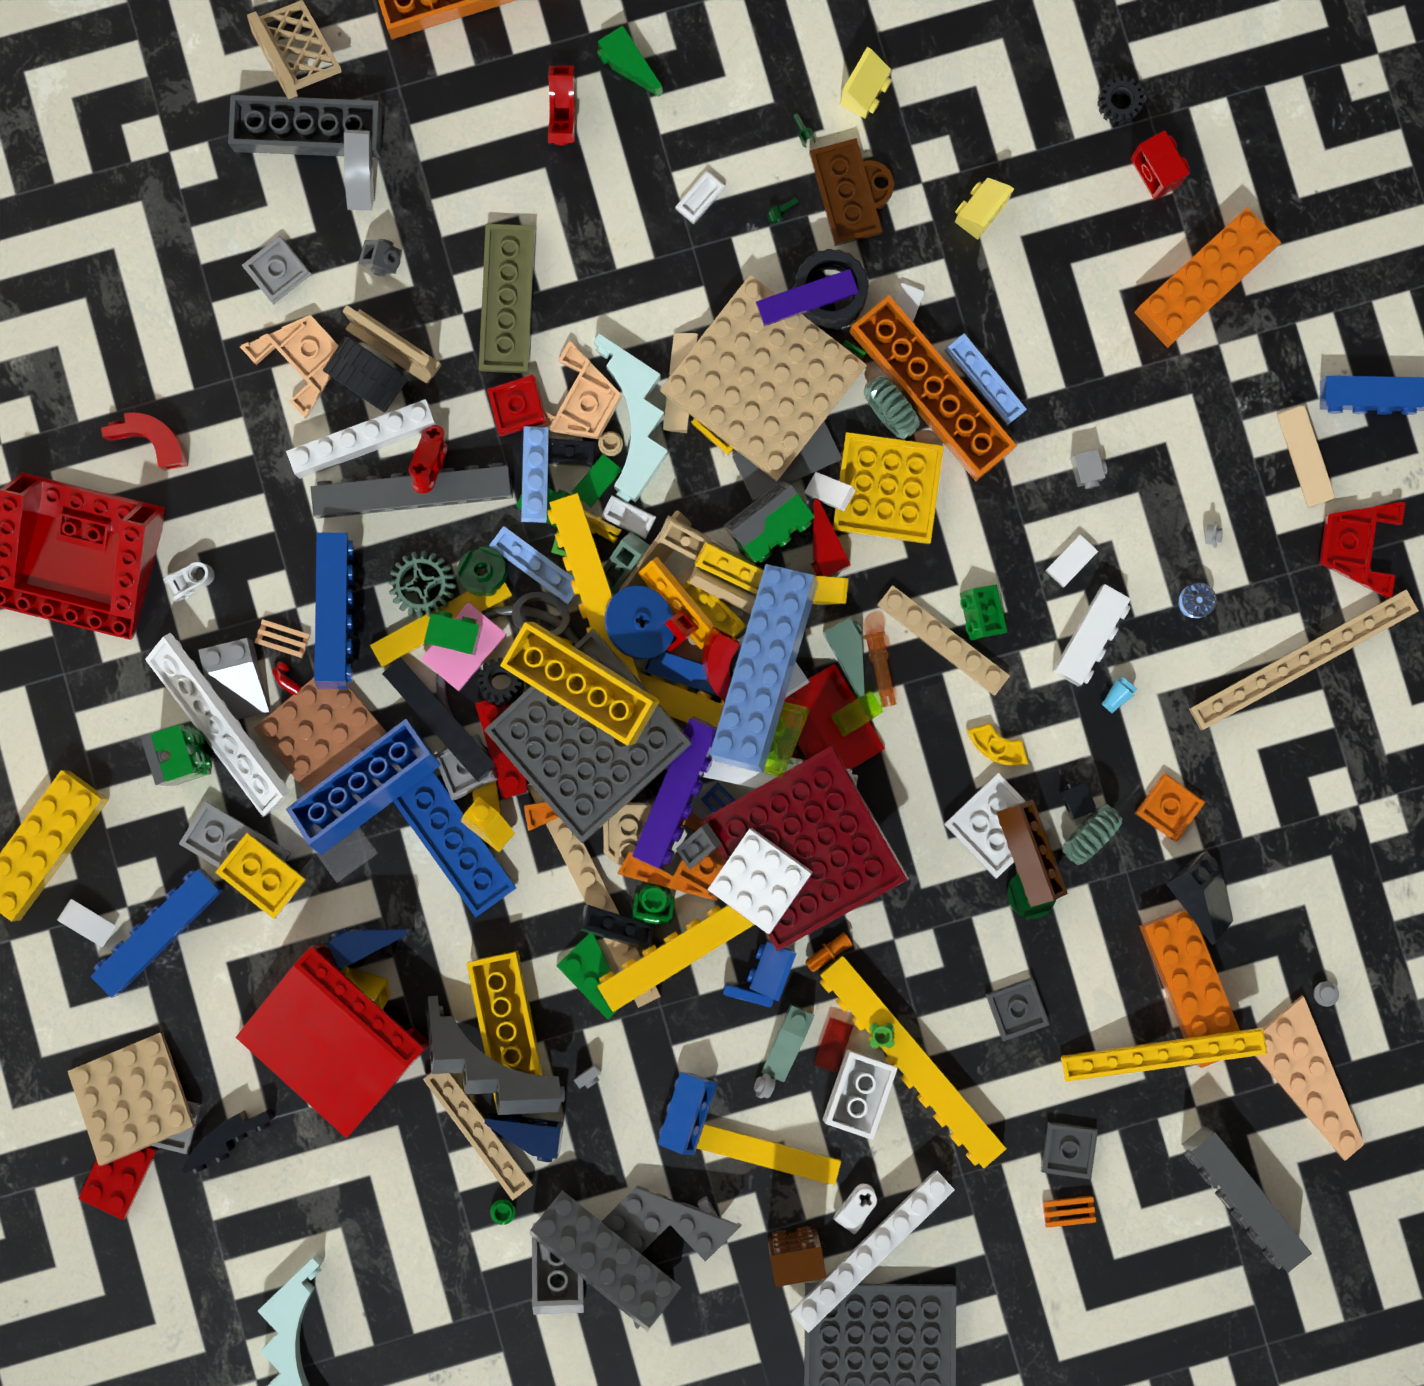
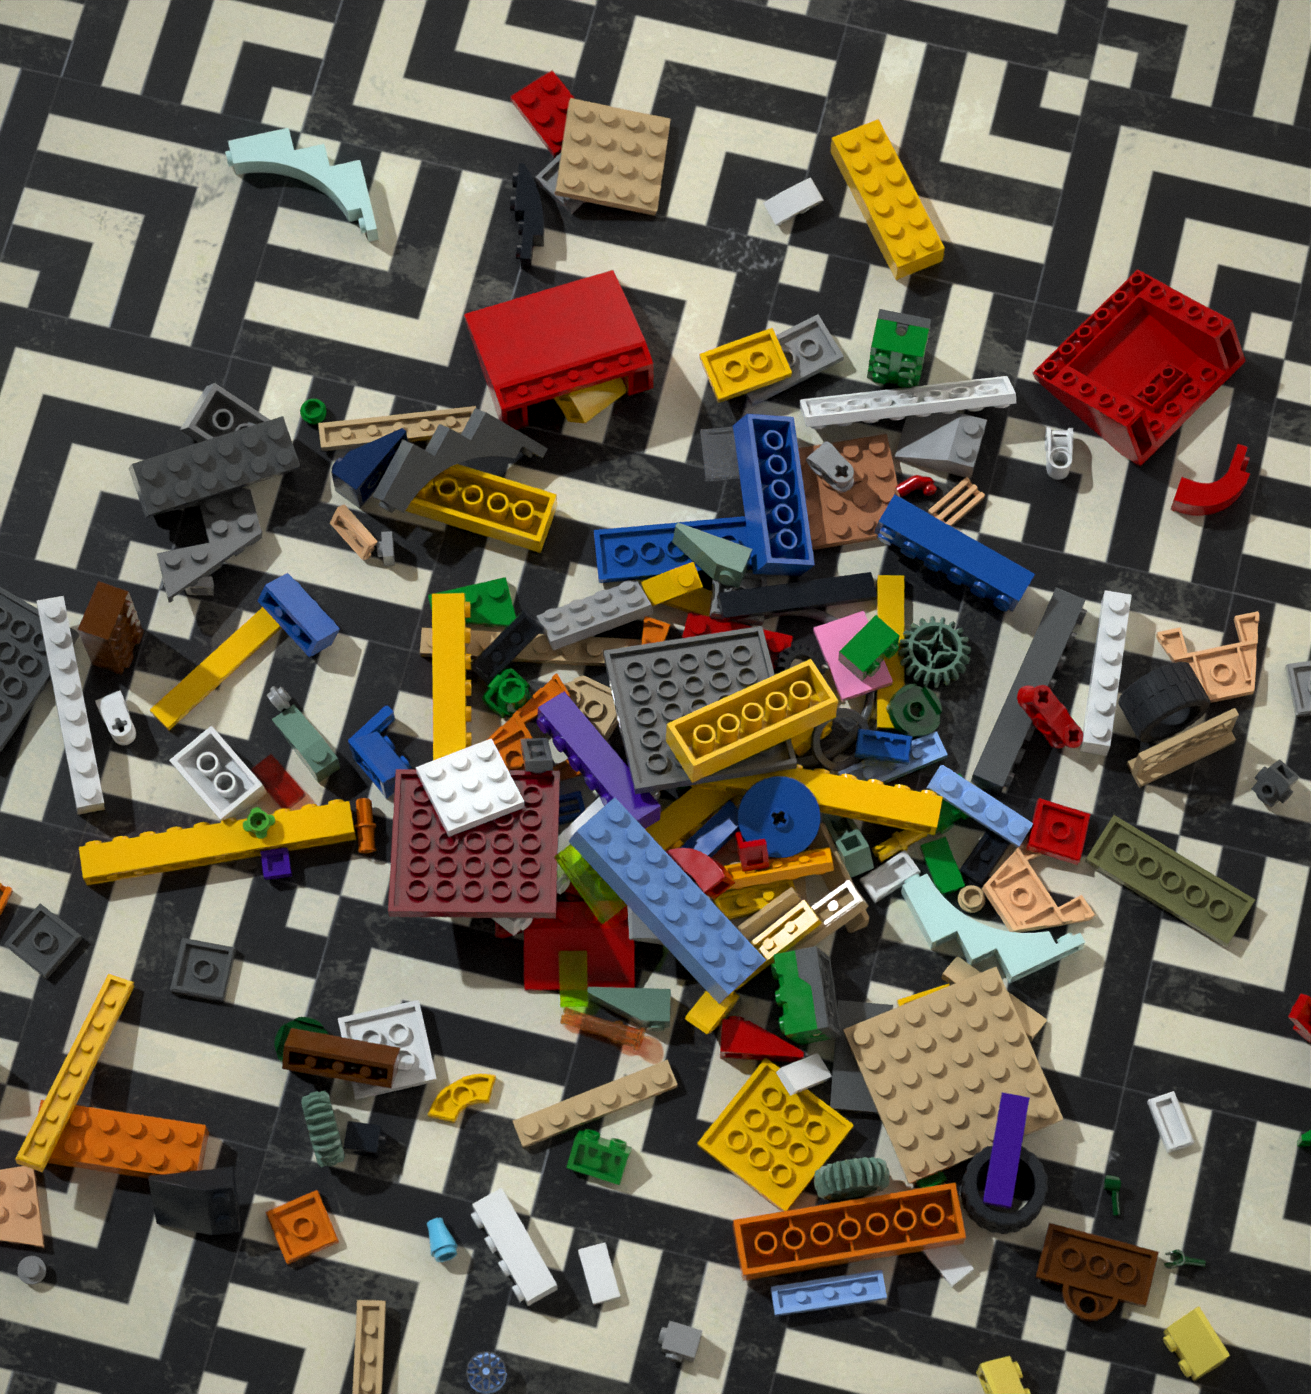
camera: 120 degrees right, 15 degrees down
(156, 932) = (748, 254): blue brick -> none
(310, 757) = (829, 464): none -> light grey piece
(354, 945) = (633, 408): dark blue slope -> none
(444, 802) = (716, 556): none -> sand green slope
(528, 578) = (883, 746): none -> blue plate
(548, 872) = (595, 614): none -> light grey plate
(590, 1112) = (353, 532): none -> light nougat tile
(900, 1004) = (276, 863): none -> dark purple plate

